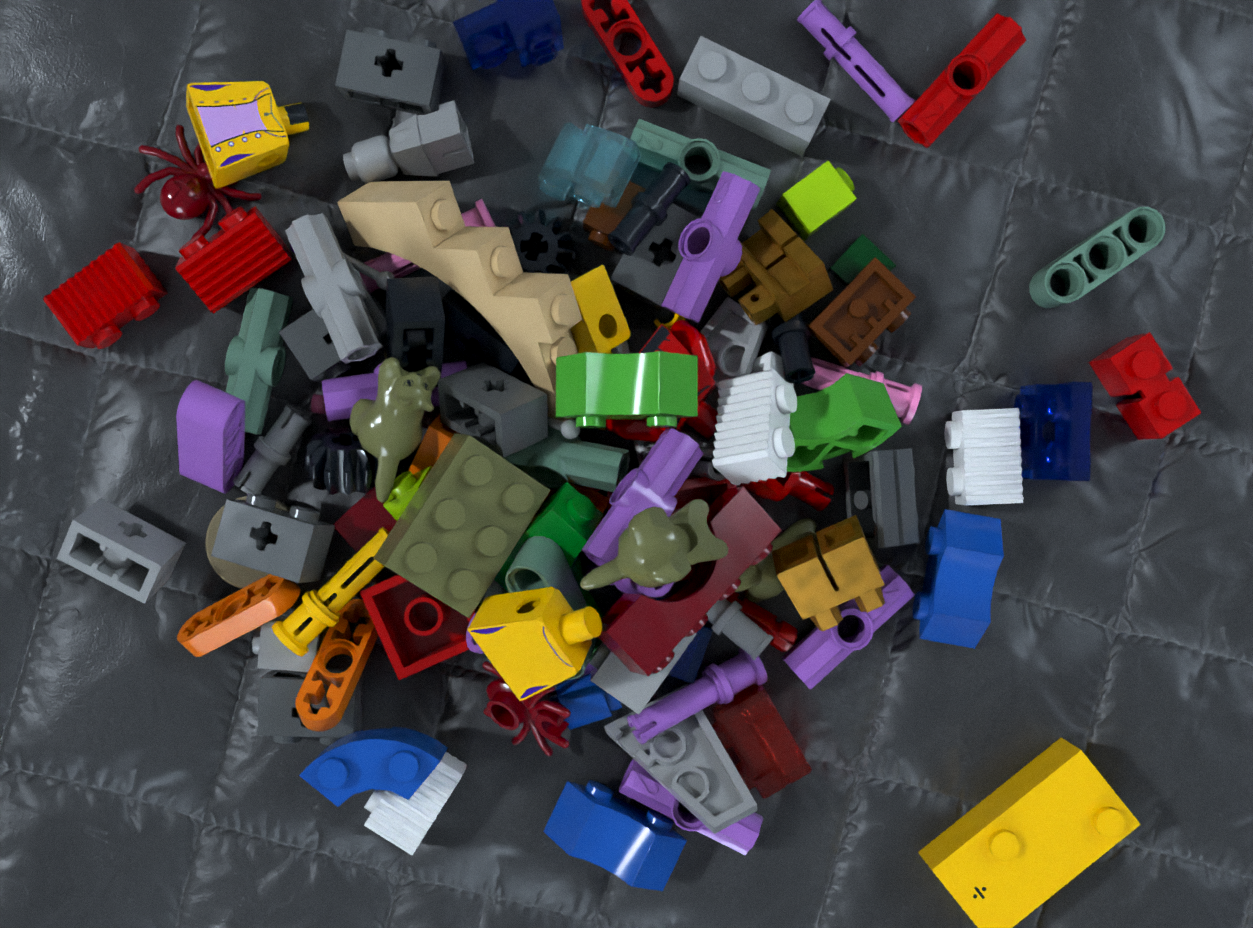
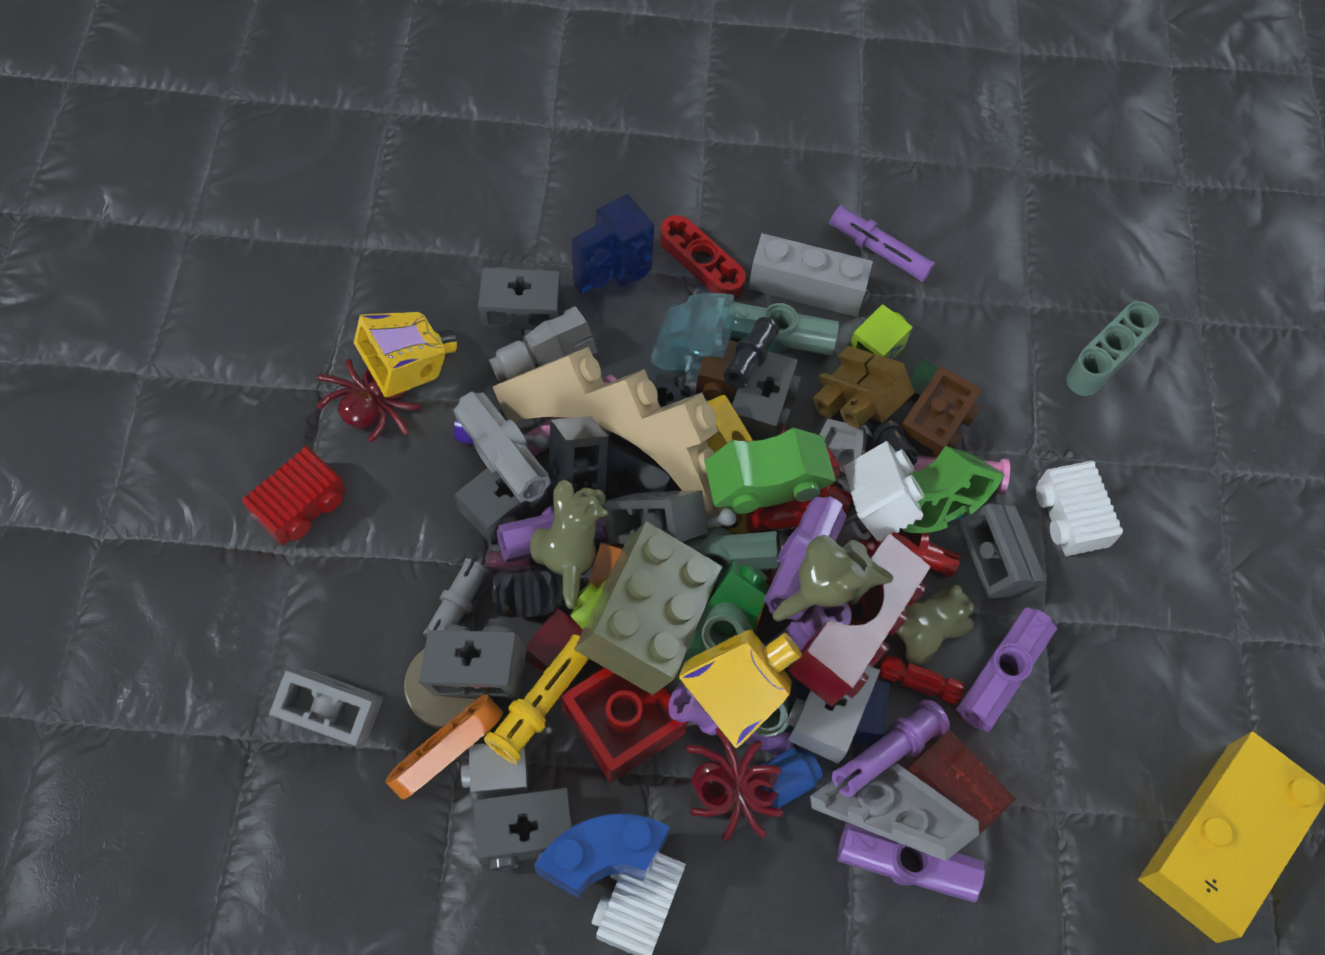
camera: 20 degrees left, 25 degrees down
(210, 436) = (405, 584): medium lavender beam -> none
(233, 258) = (405, 447): red brick -> none
(257, 355) = (432, 530): sand green piece -> none
(340, 684) = (553, 786): orange beam -> none
(615, 835) = (837, 902): blue brick -> none
(710, 246) = (807, 373): medium lavender piece -> none
(739, 628) = (909, 677): light grey pin -> none
(851, 567) = (981, 603): pearl gold hips -> none
(959, 578) = (1091, 611): blue brick -> none
(977, 61) = (966, 244): red piece -> none
(1070, 410) = (1137, 461): clear blue brick -> none
(1141, 367) = (1206, 439): red piece -> none

